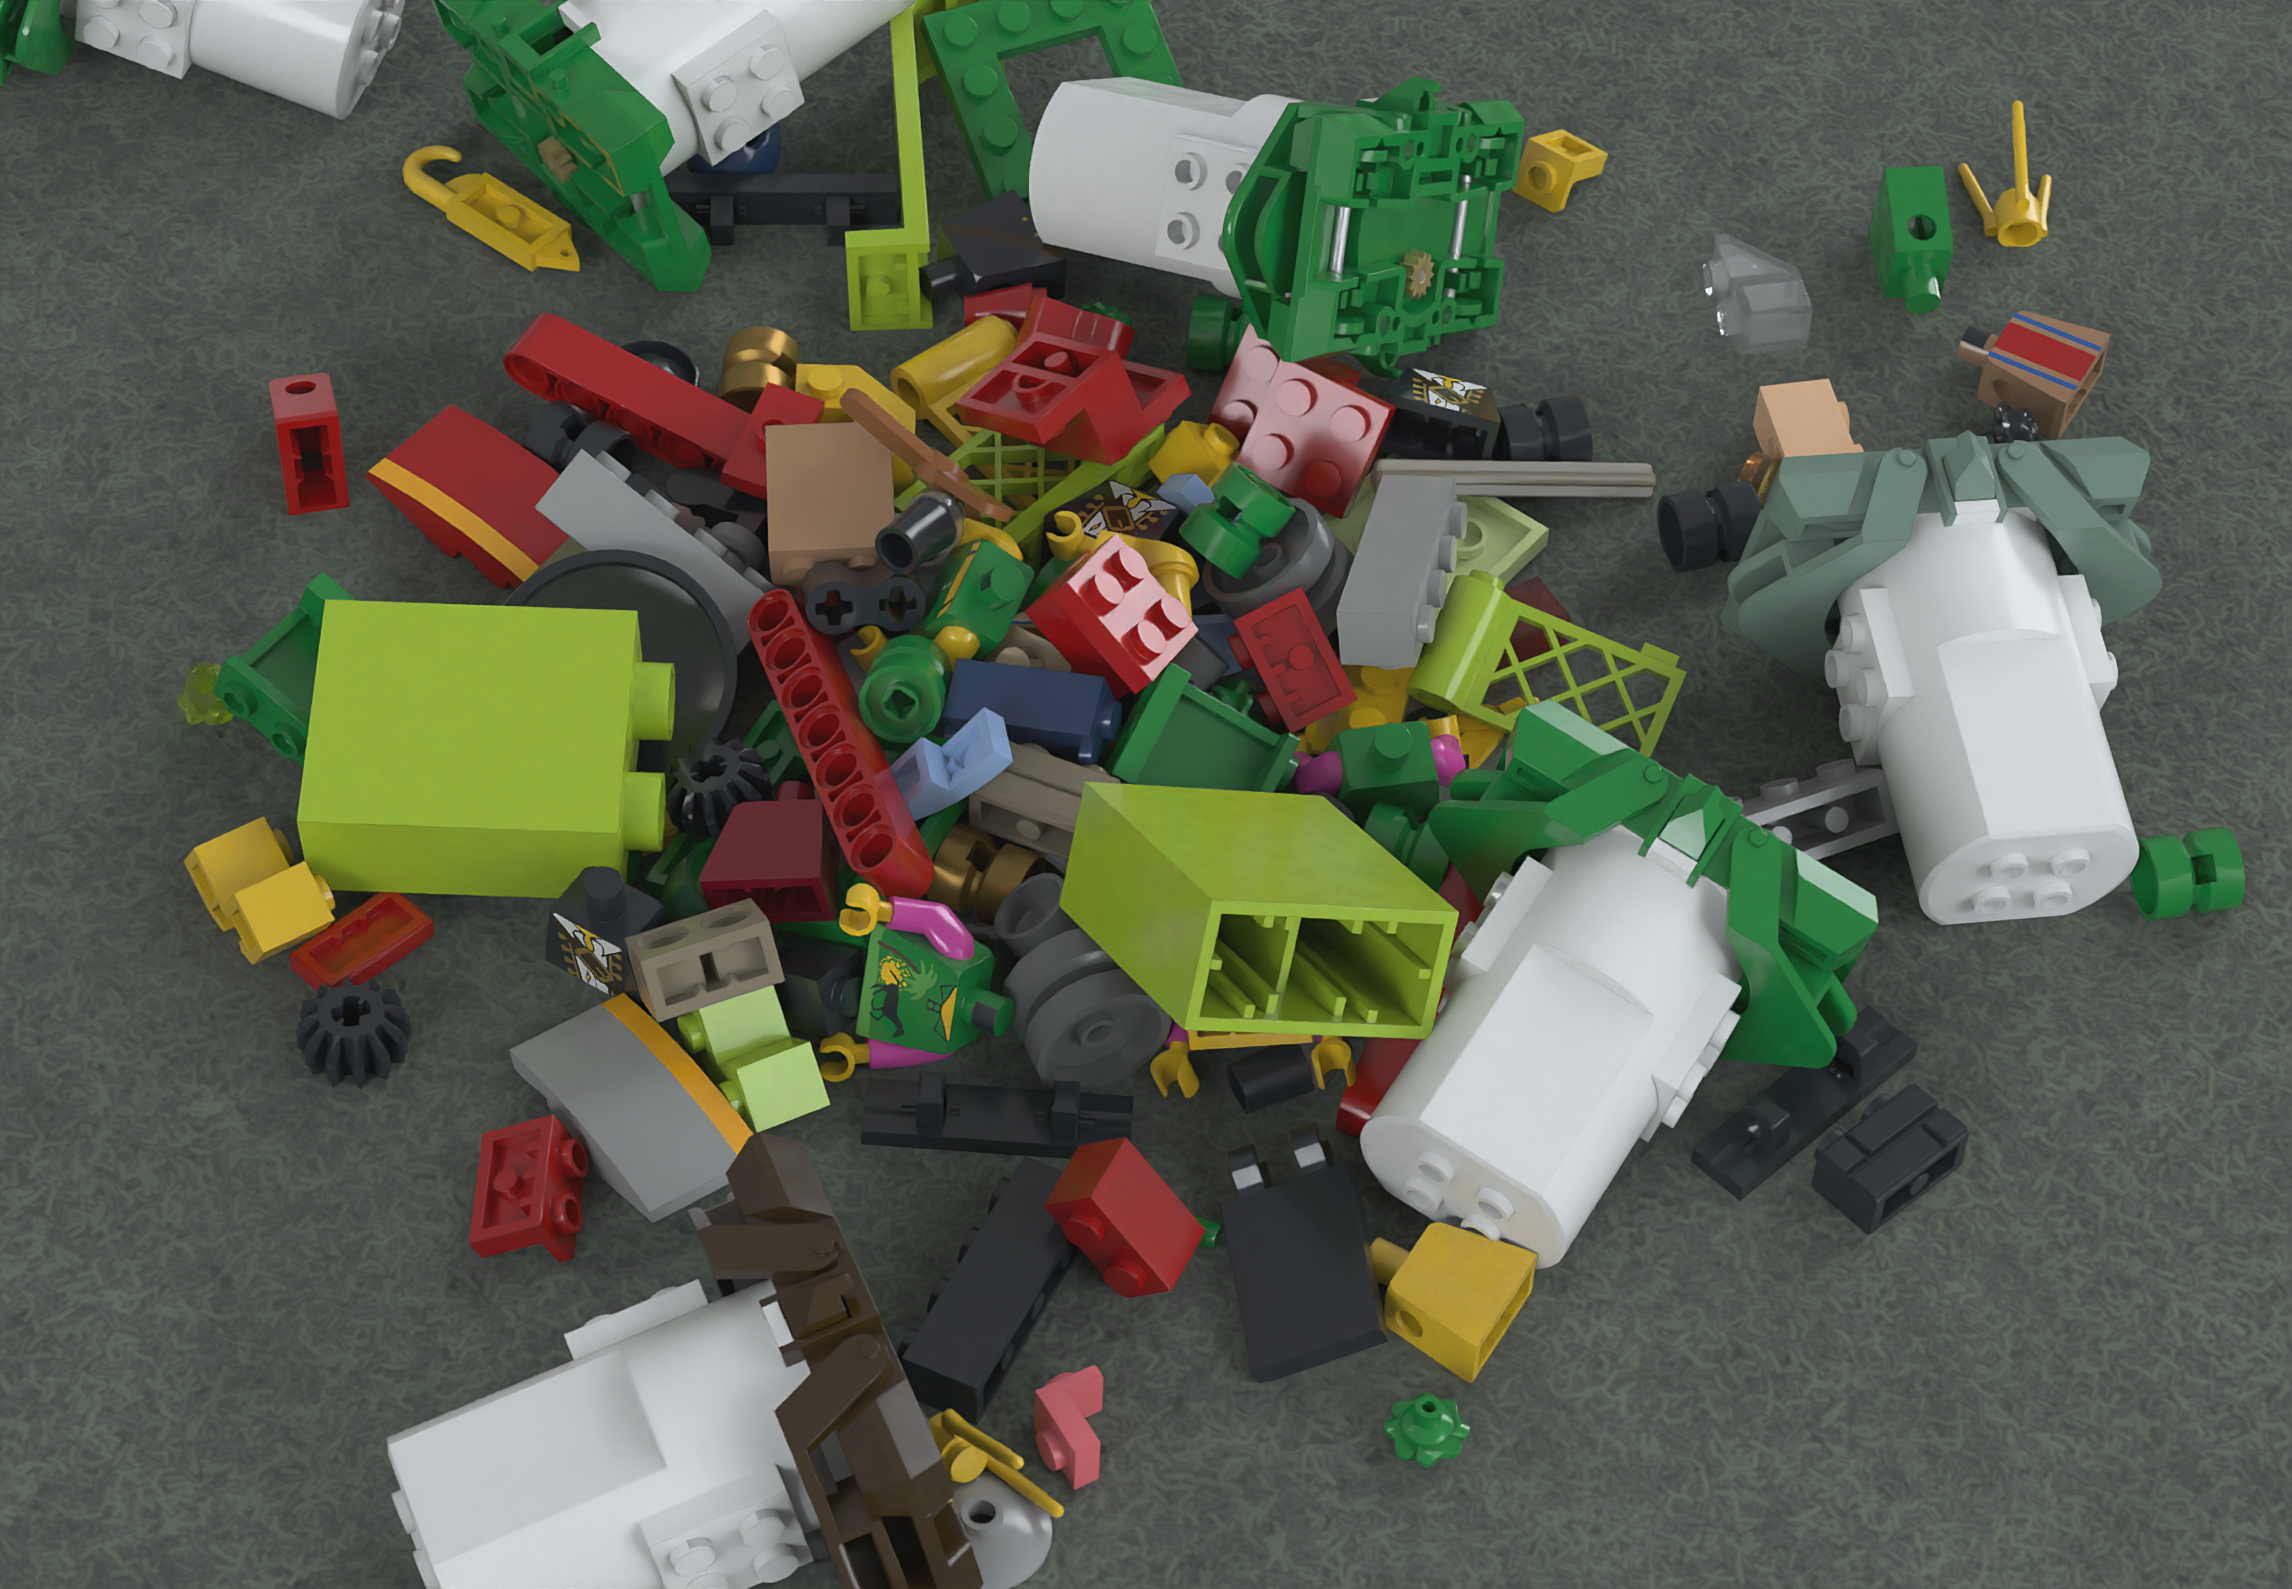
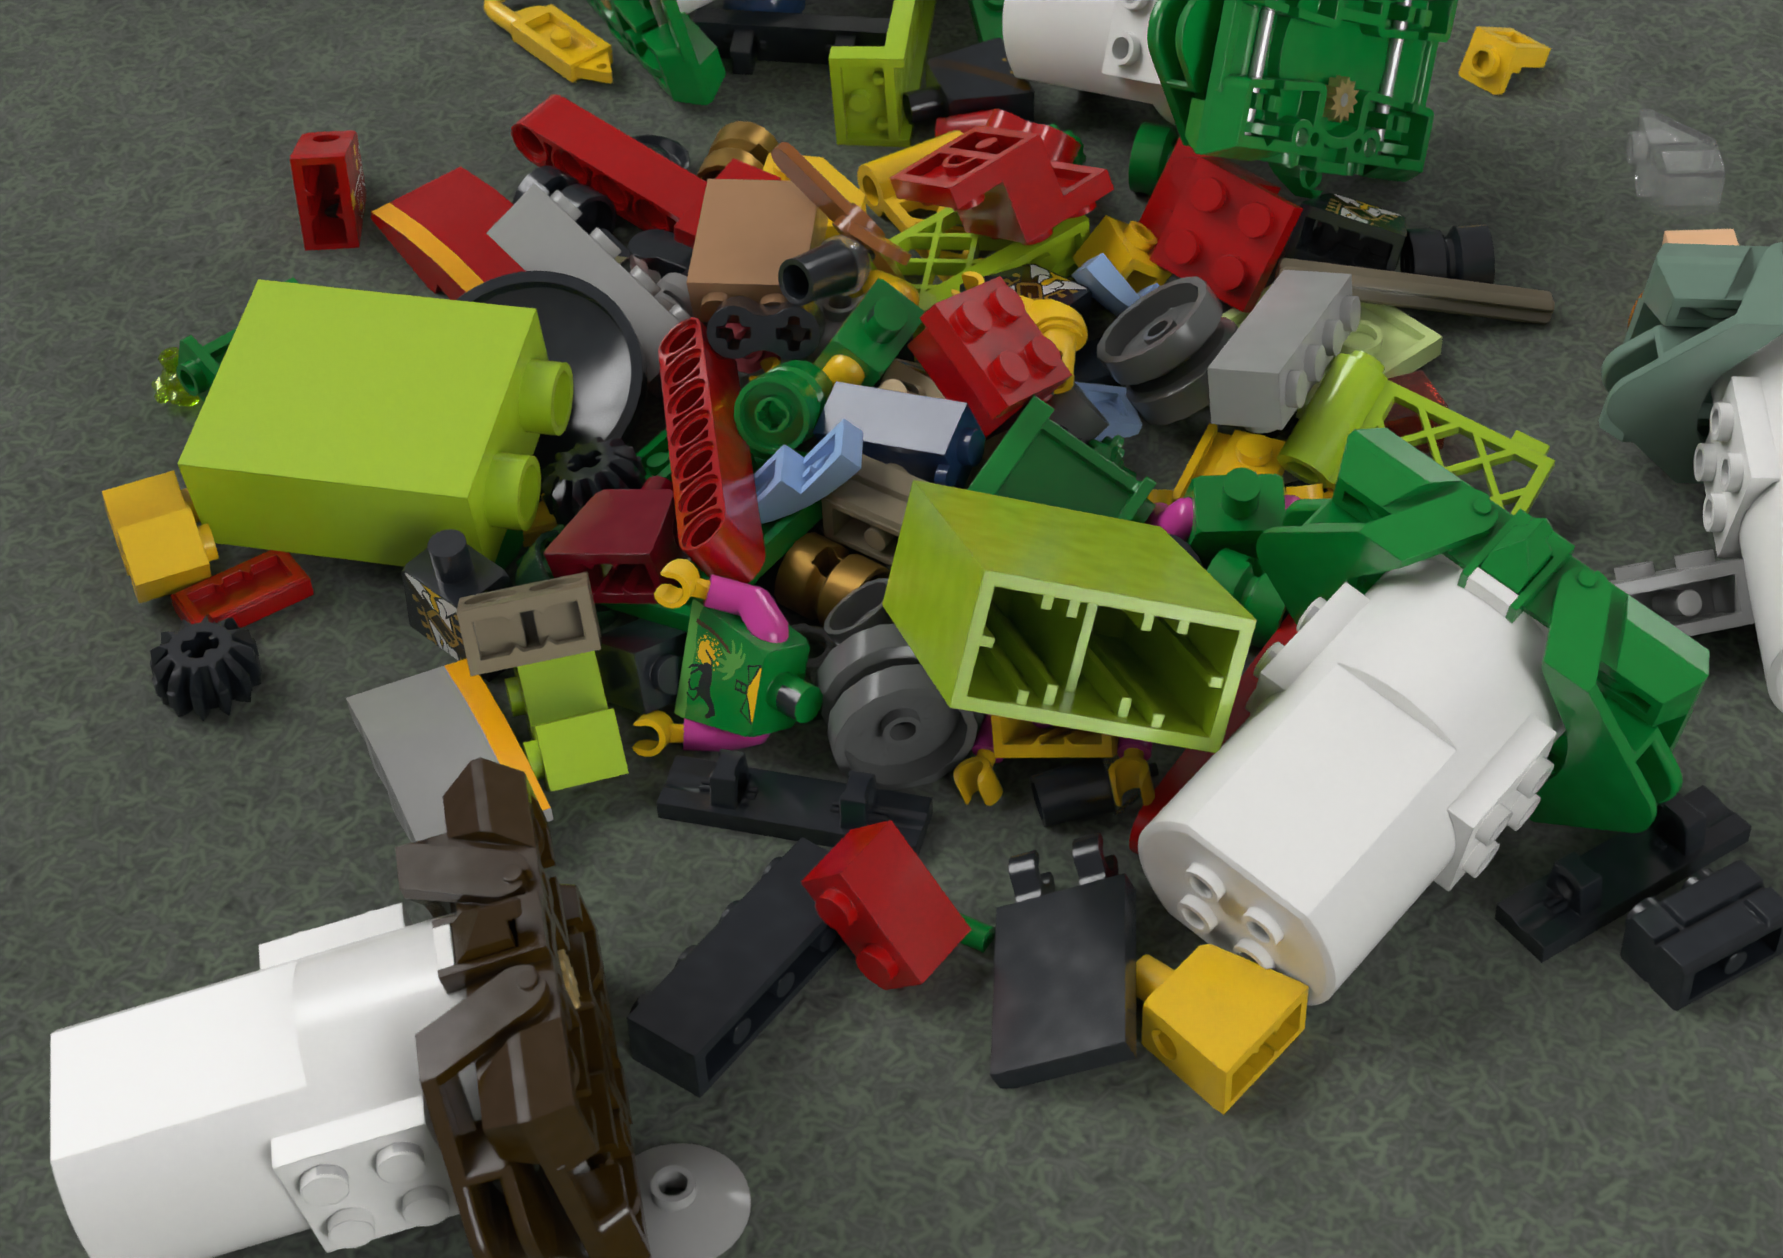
camera: 15 degrees right, 5 degrees down
(529, 1189) = (324, 825): red bracket -> none
(969, 1451) = (668, 1123): yellow plant -> none
(1061, 1426) = (781, 1090): coral bracket -> none
(1232, 542) = (1131, 290): green wheel -> none
(1291, 661) = (1167, 420): red bracket -> none
(1426, 1429) = (1162, 1154): green plant -> none
(1702, 527) = (1584, 340): black wheel -> none

